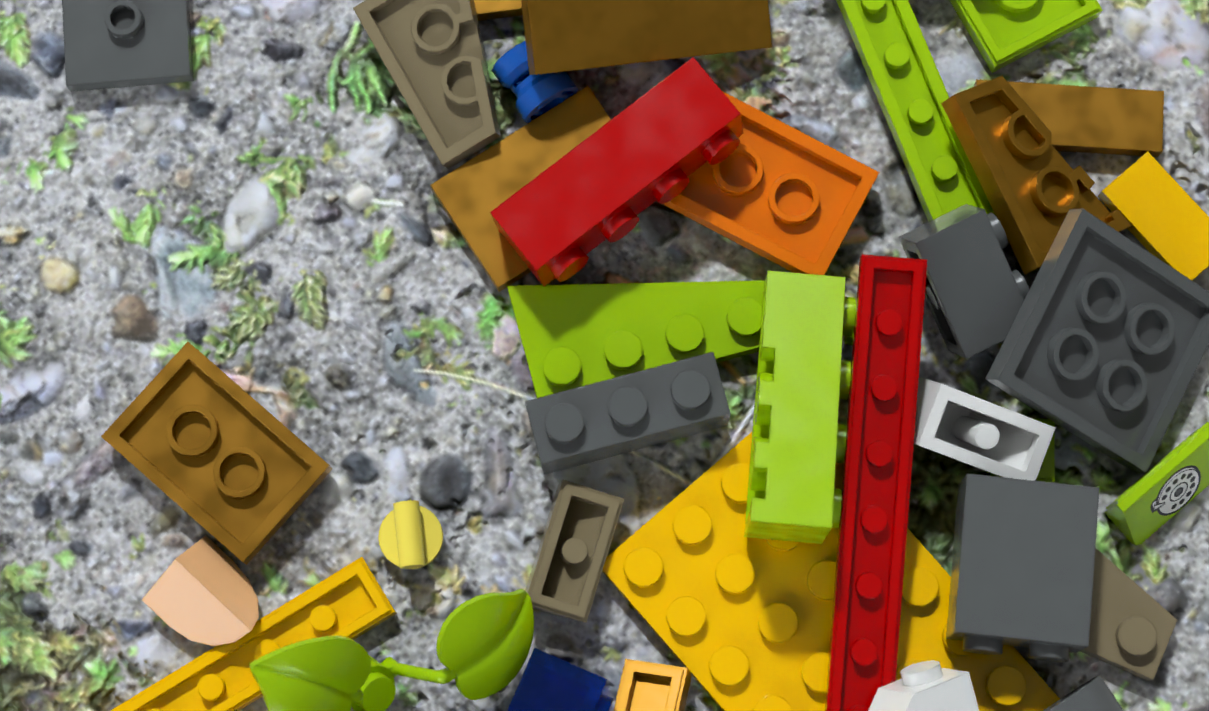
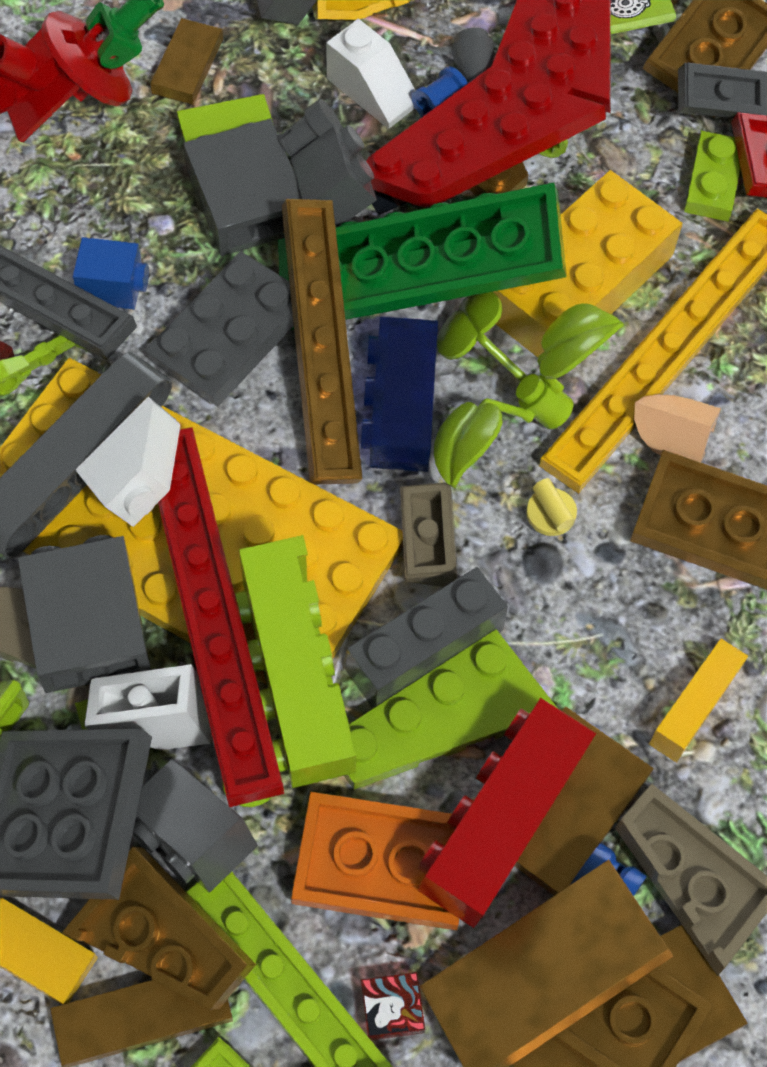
camera: 155 degrees right, 15 degrees down
(342, 247) = (698, 700): none -> yellow piece
(806, 40) = (392, 1006): none -> tile

